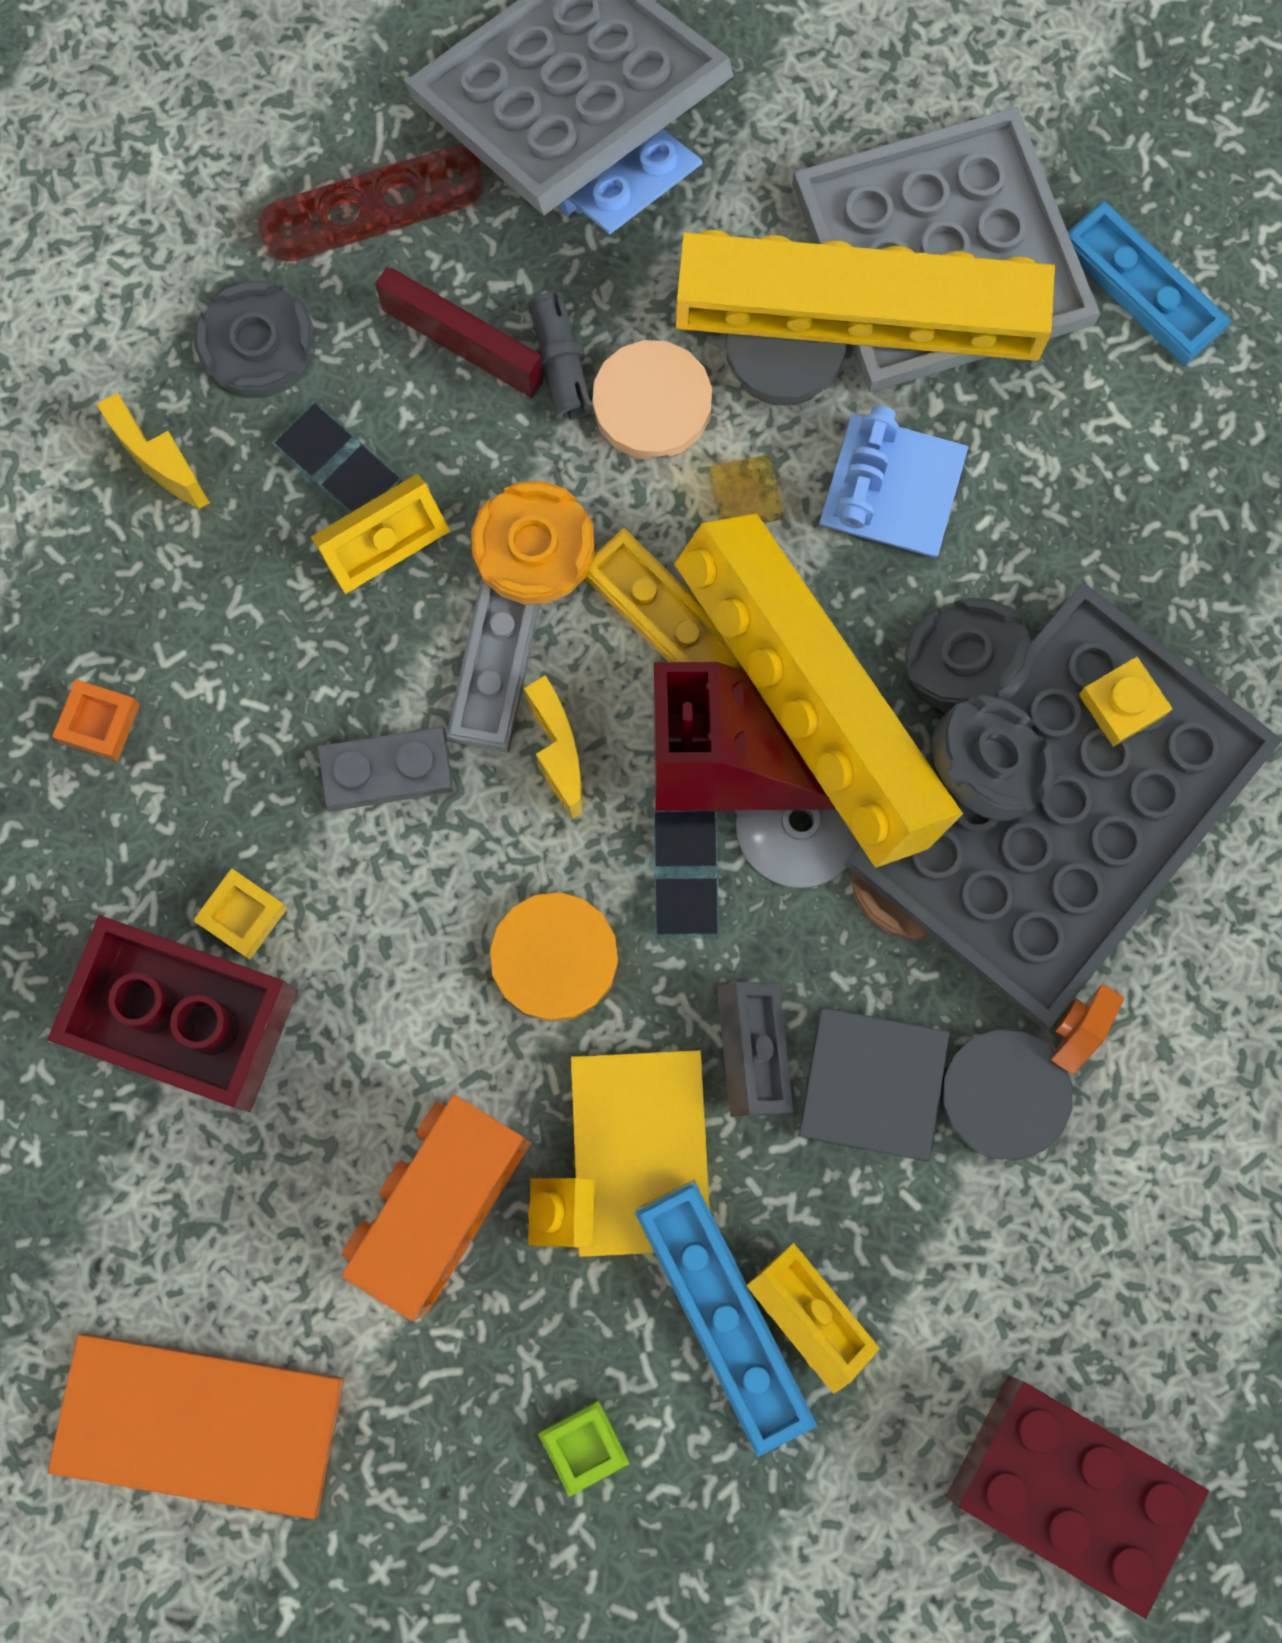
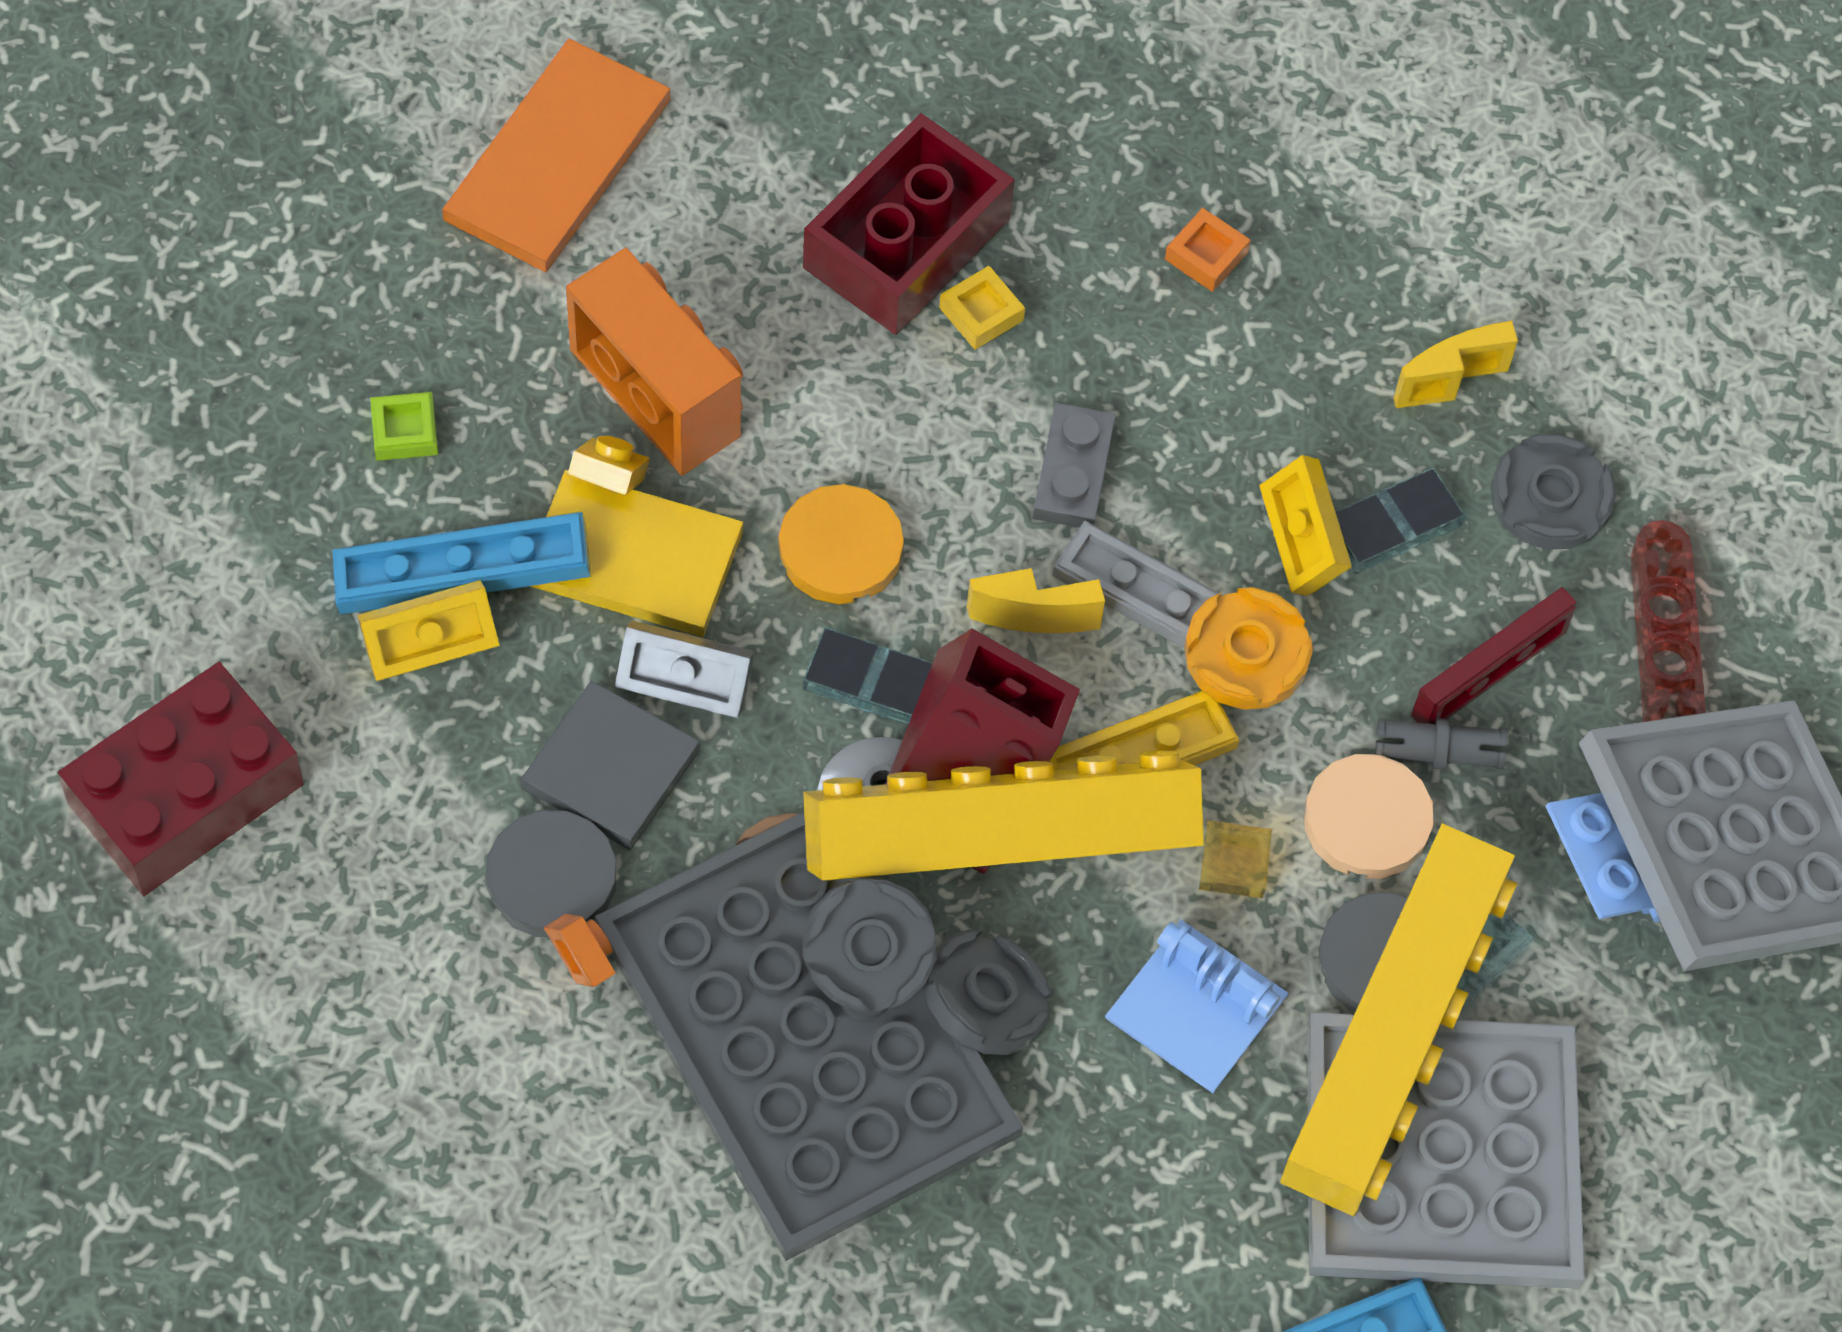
camera: 105 degrees right, 15 degrees down
(1125, 701) = (881, 1107): yellow plate -> none

